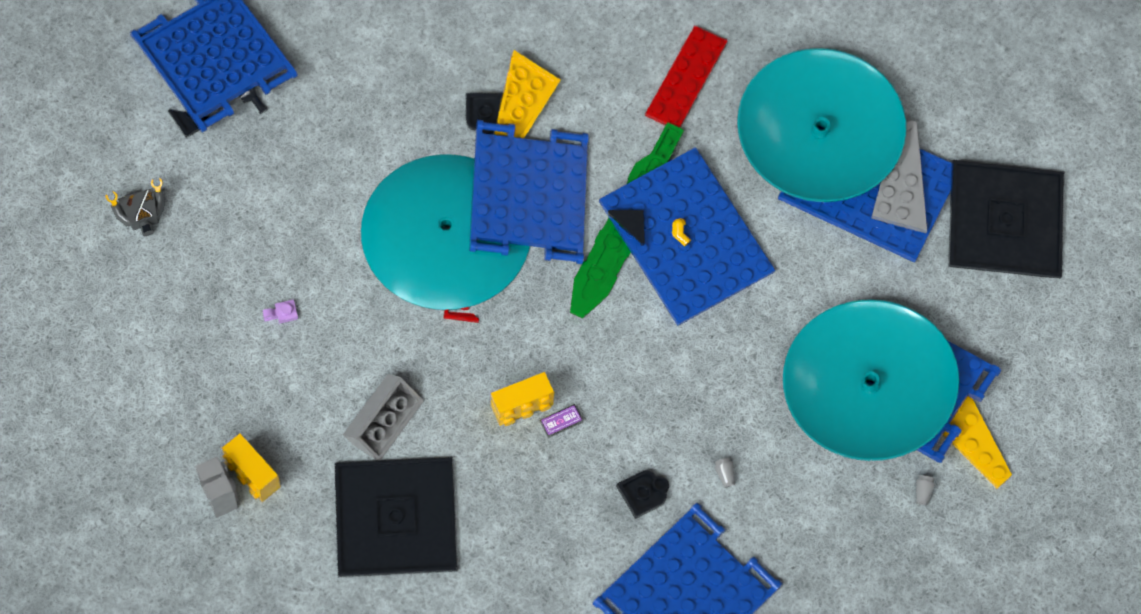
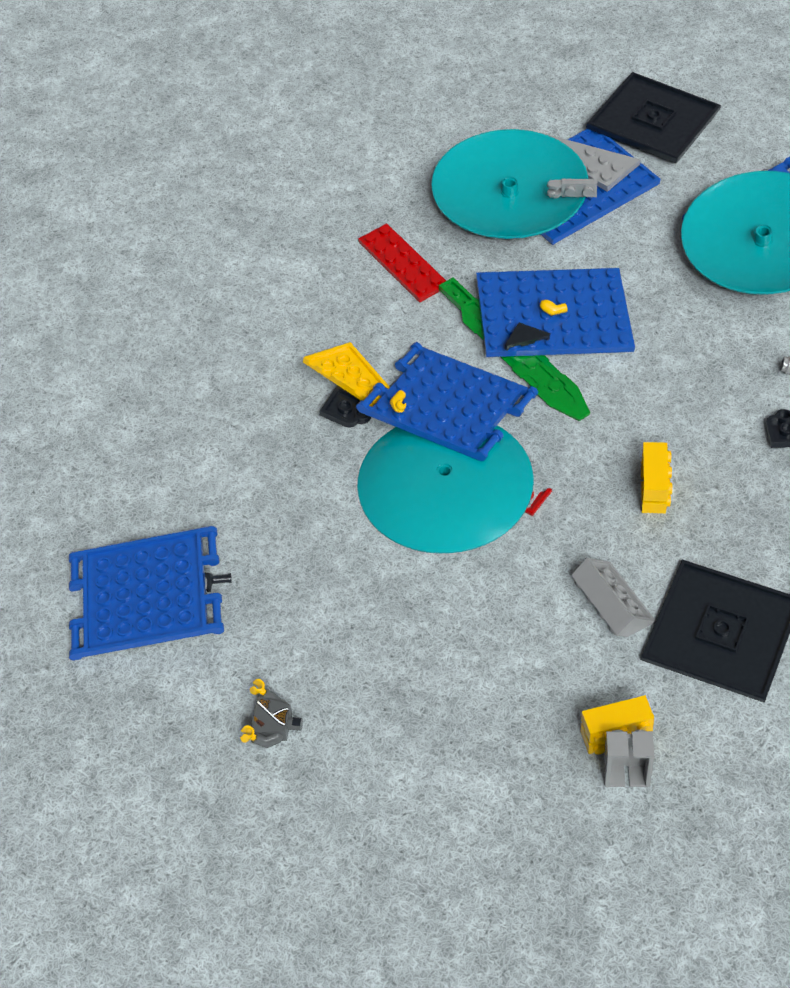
camera: 55 degrees left, 15 degrees down
(185, 122) = (199, 646): black tile -> none
(283, 312) = (454, 640): lavender plate -> none
(493, 149) = (396, 401): none -> yellow arm
(561, 421) = (685, 464): tile -> none
(834, 183) = (572, 188): none -> light grey hinge

